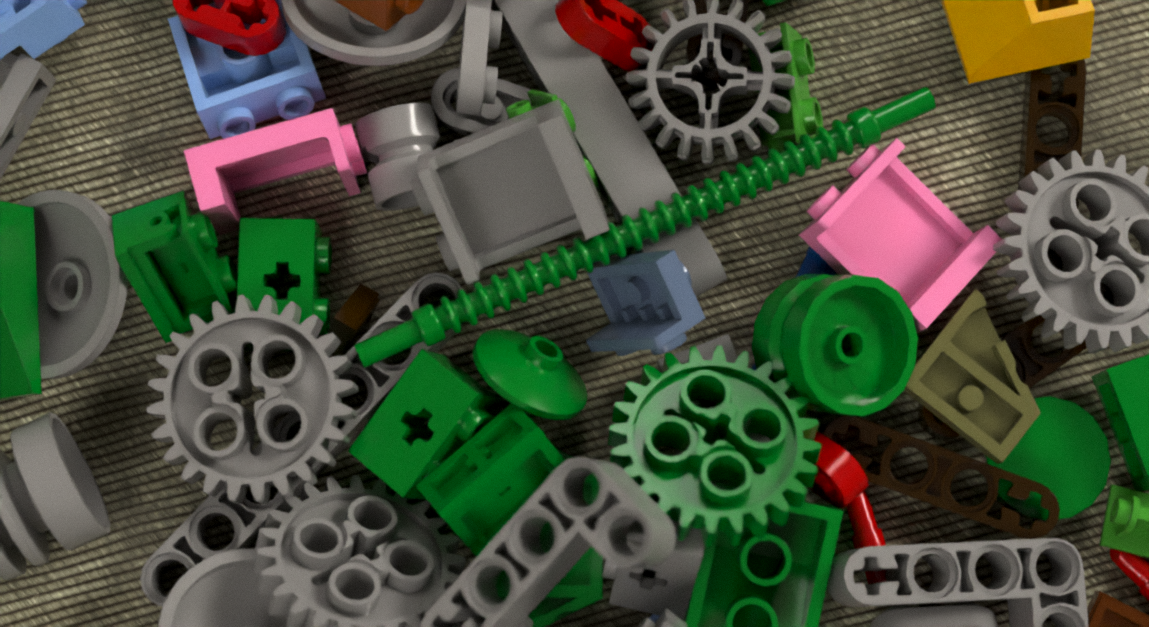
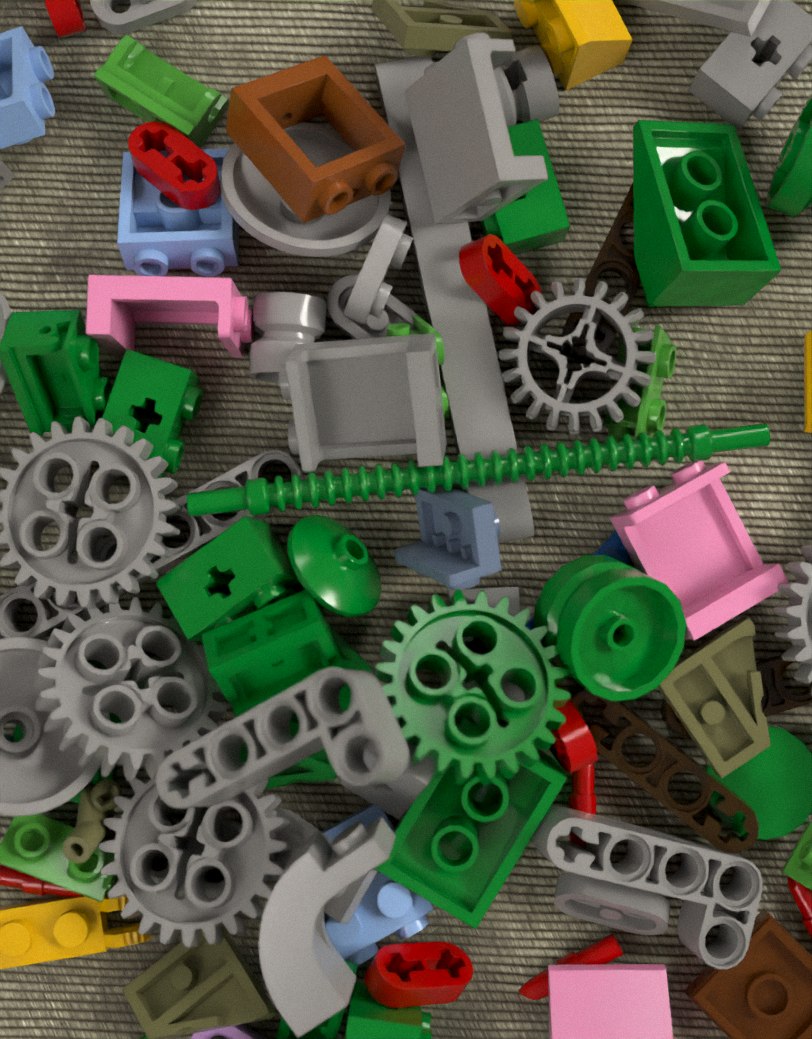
camera: 25 degrees right, 5 degrees up
(352, 316) = (196, 466): dark brown tile -> none

